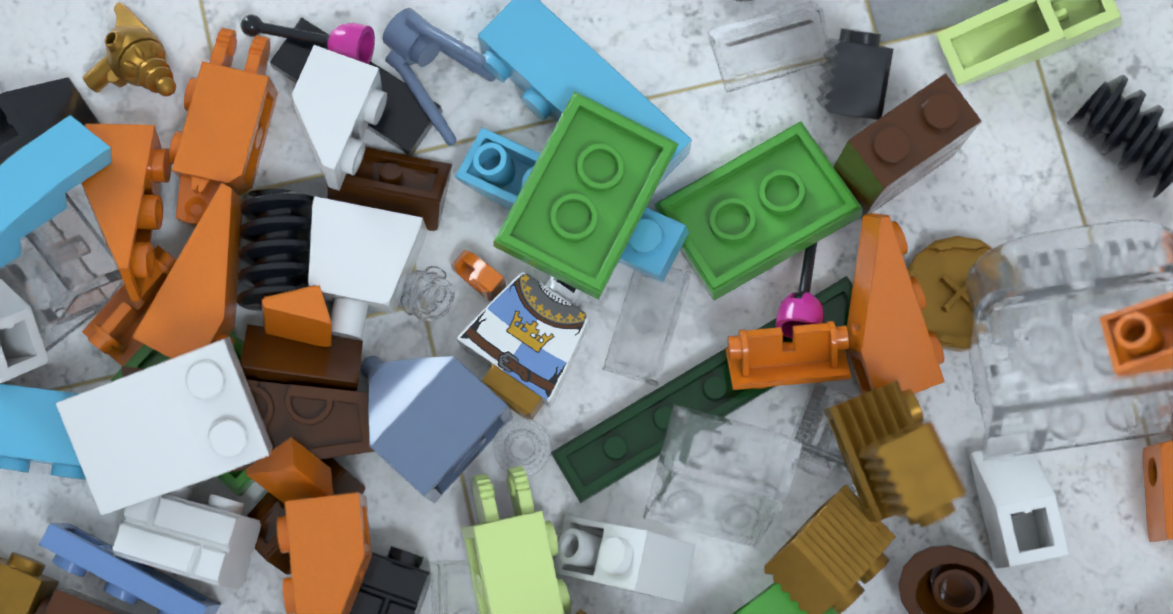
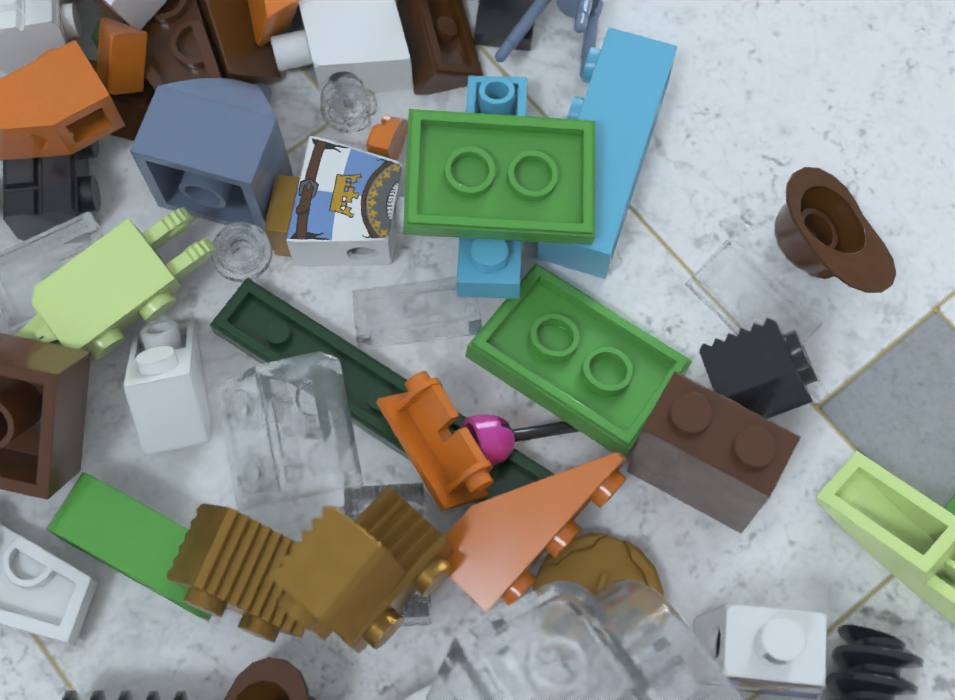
camera: 65 degrees right, 10 degrees down
(1065, 184) = (767, 649): none -> white torso

